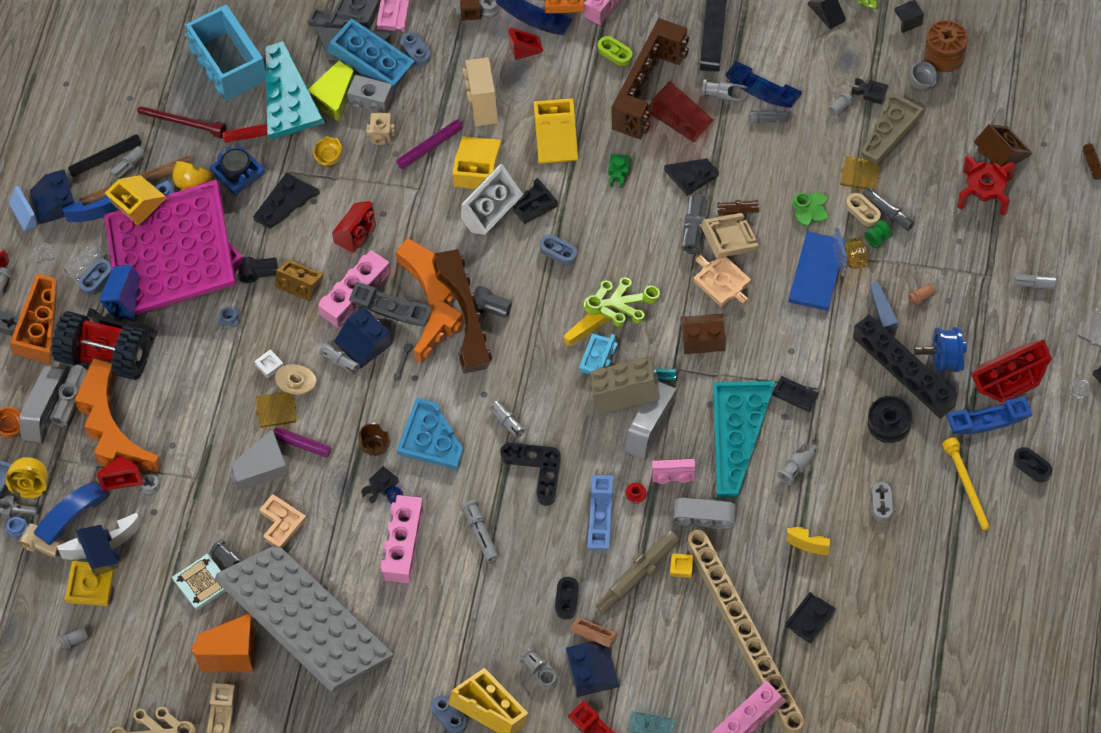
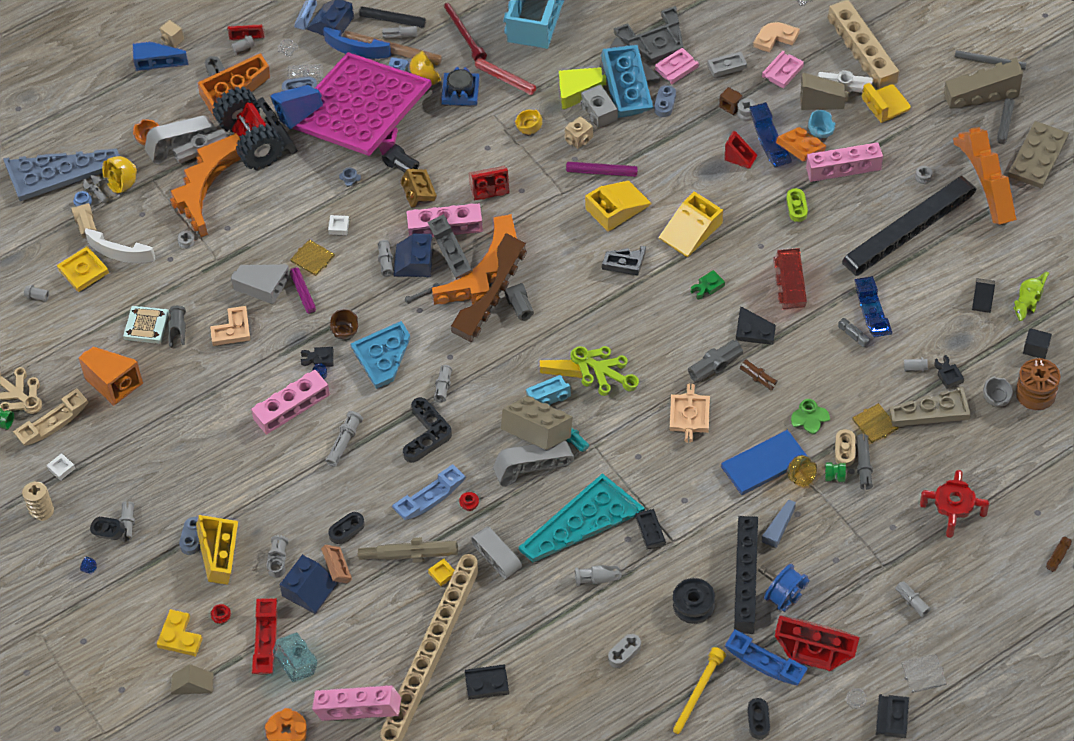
camera: 45 degrees right, 5 degrees down
(68, 510) = (119, 211): blue slope -> none
(97, 549) = (99, 247): dark blue slope -> none
(119, 474) = (170, 216): red slope -> none
(135, 197) = (369, 52): yellow slope -> none
(283, 199) = (471, 130): black wing -> none
(288, 98) = (540, 67): wing -> none
(295, 379) = (341, 247): tan dish -> none
(304, 617) = (171, 395): light grey plate -> none
(481, 91) = (672, 158): tan wedge -> none
(490, 201) = (590, 232): white slope -> none
(559, 249) = (605, 304): sand blue plate -> none
(665, 42) = (757, 242): reddish brown plate -> none
(673, 470) = (506, 506): bright pink plate -> none
(703, 333) = (634, 436): reddish brown slope -> none
(720, 90) = (839, 287): light grey piece -> none
(733, 236) = (731, 387): tan container -> none
(799, 538) = (540, 626): yellow slope -> none
(840, 251) = (786, 458): clear piece -> none
(921, 294) = (818, 538): nougat pin -> none
(1001, 145) = (1000, 486): reddish brown slope -> none

